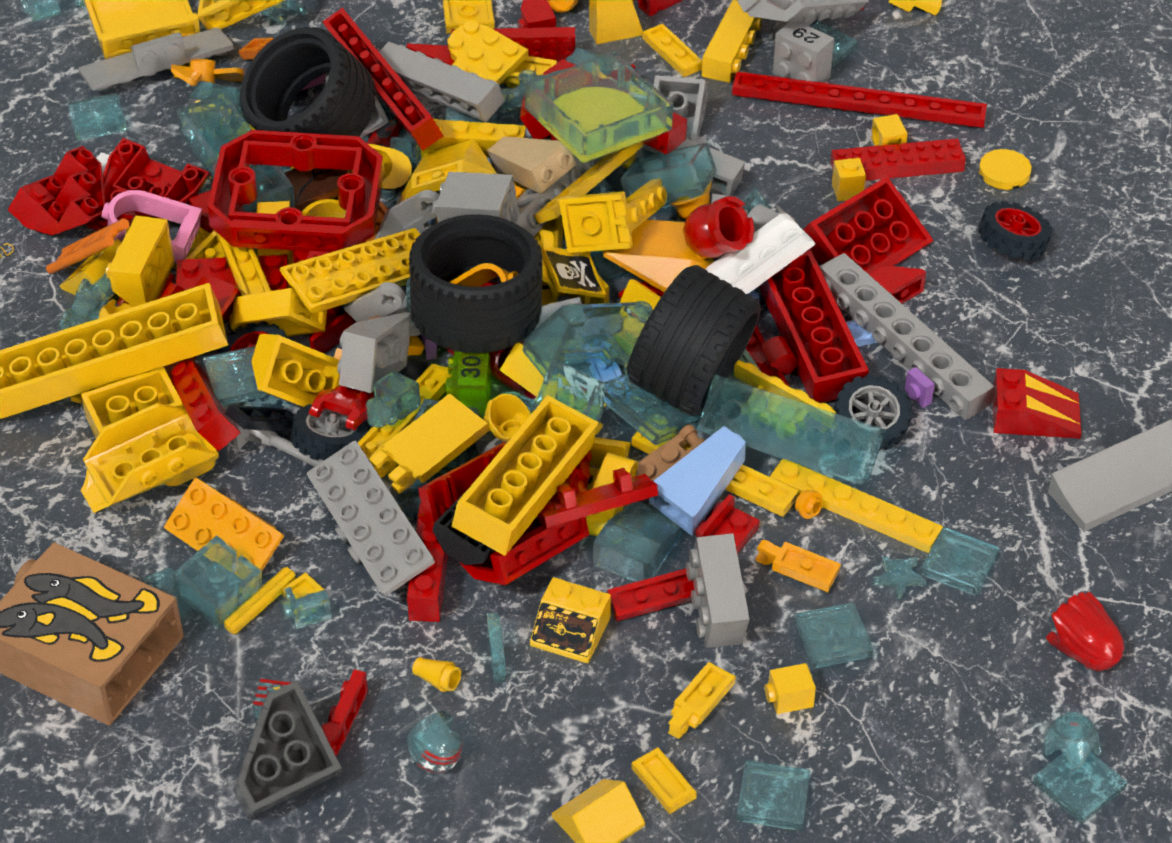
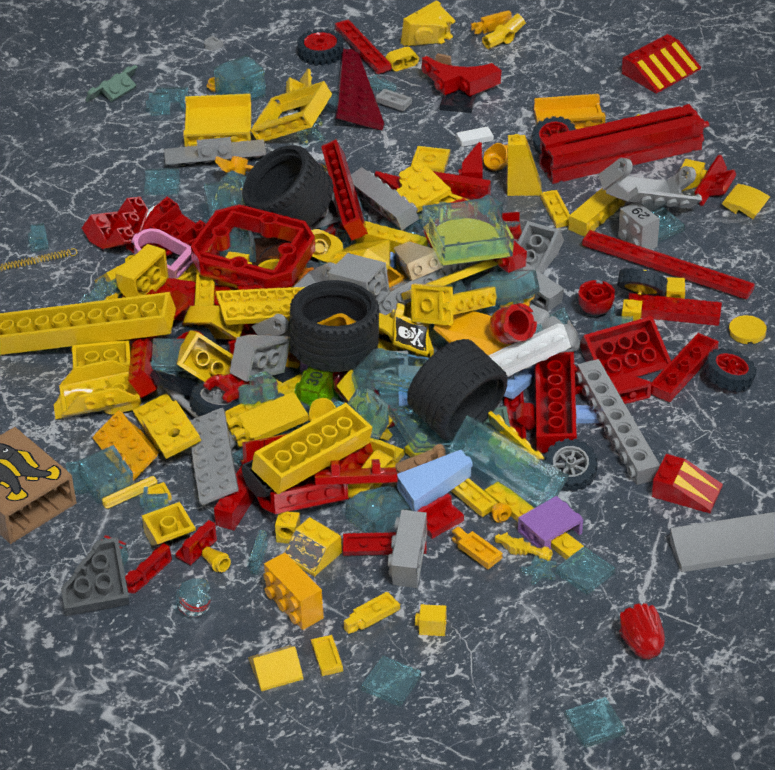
camera: 20 degrees right, 5 degrees down
(87, 246) = (115, 258): orange bar -> none
(276, 485) = (167, 425): none -> yellow bracket
(347, 640) = (167, 524): none -> yellow slope
(399, 656) = (194, 546): none -> red bracket
(522, 599) = (286, 525): none -> yellow brick
(580, 695) = (293, 591): none -> light orange brick
(794, 165) = (596, 297): none -> red cylinder
(831, 194) = (614, 321): none -> clear light blue bracket
(833, 635) = (476, 595): clear light blue tile -> none
(847, 131) = (642, 282): none -> black wheel
(853, 548) = (519, 546): none -> yellow piece
(883, 506) = (548, 522): none -> medium lavender panel
(919, 387) = (611, 456): medium lavender plate -> none
(951, 239) = (683, 367): none -> red piece
(1074, 735) = (599, 691): clear light blue piece -> none

